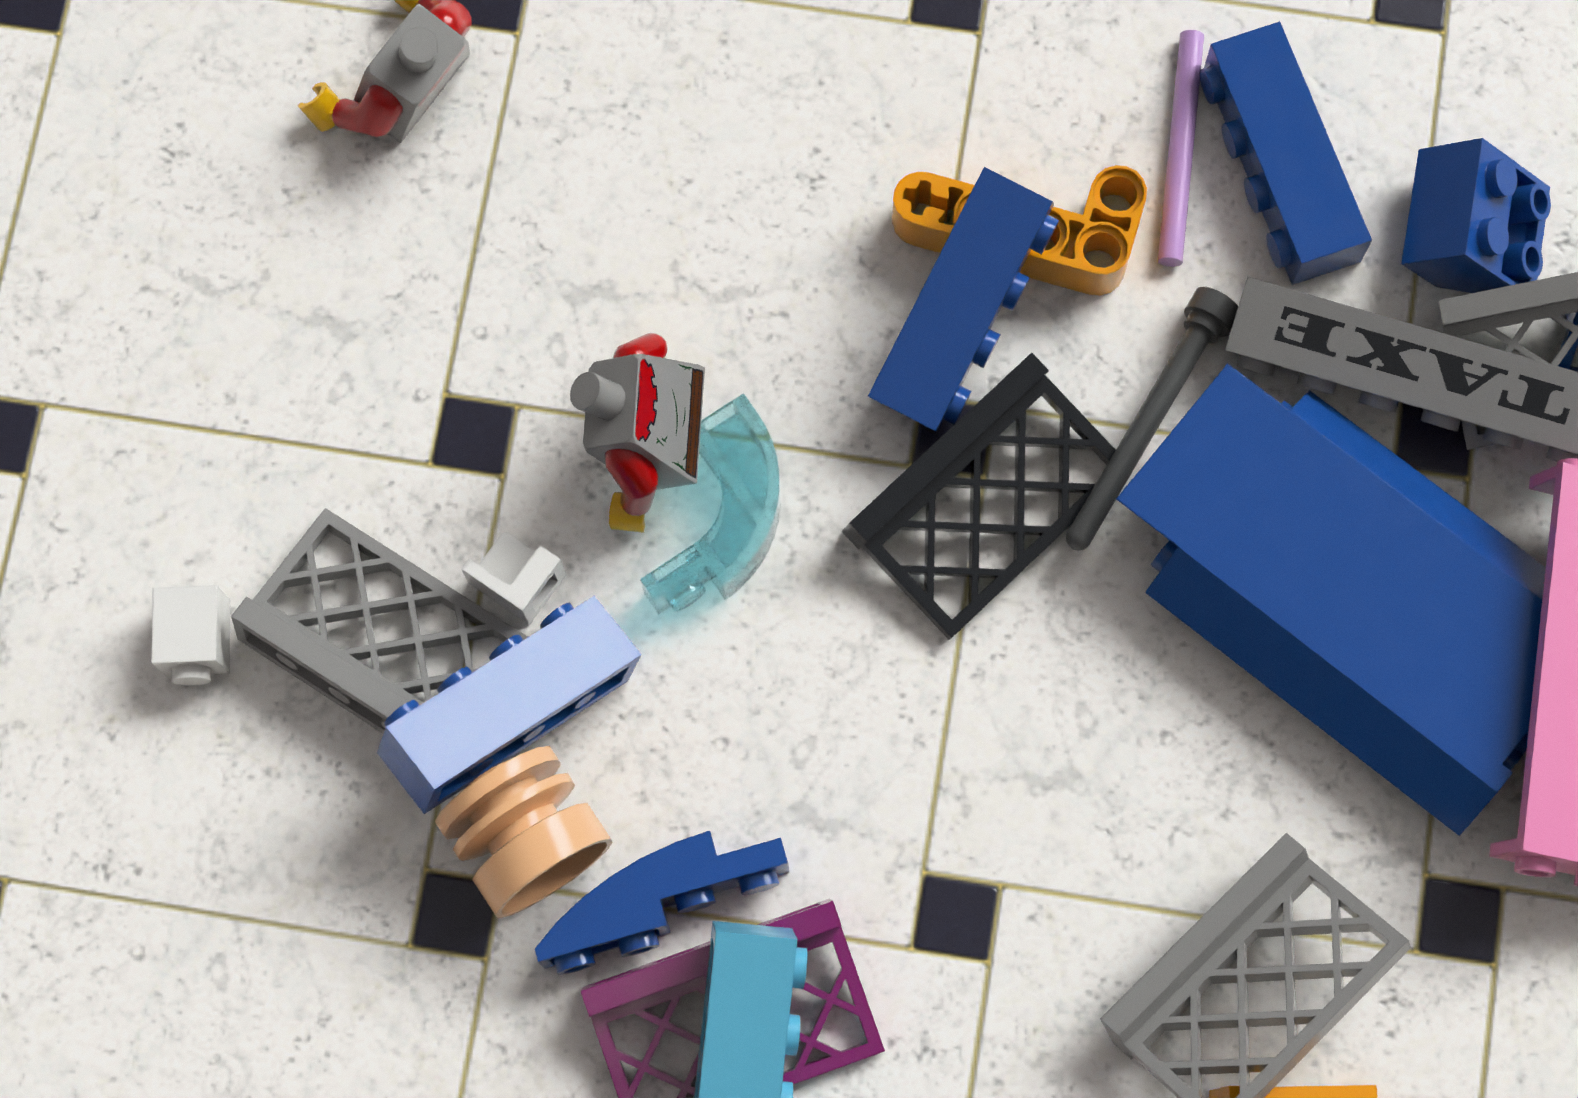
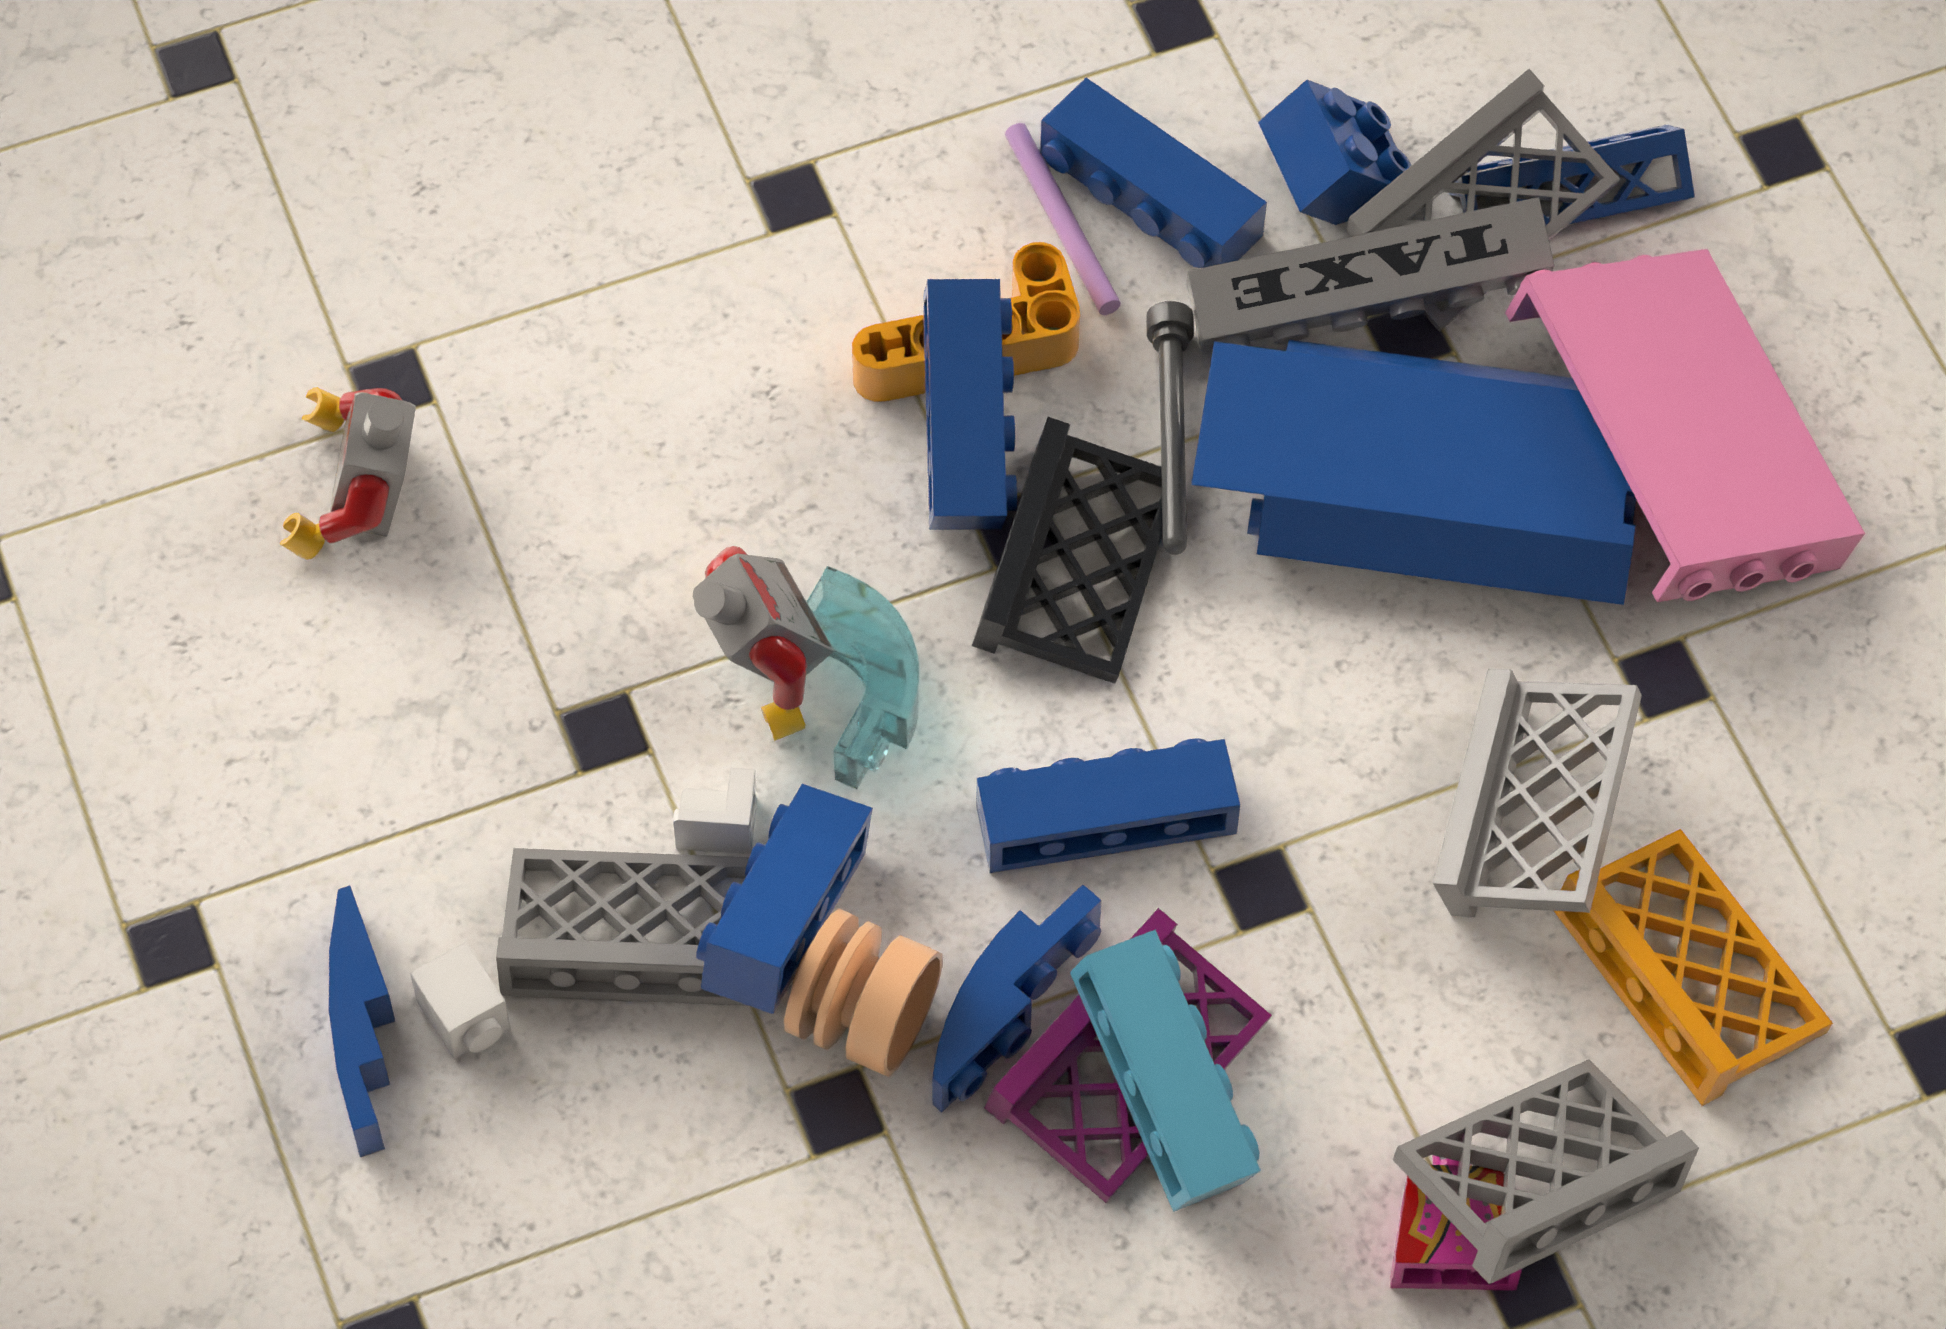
camera: 35 degrees left, 15 degrees down
(105, 578) = (356, 1008): none -> blue slope
(859, 762) = (1107, 804): none -> blue brick

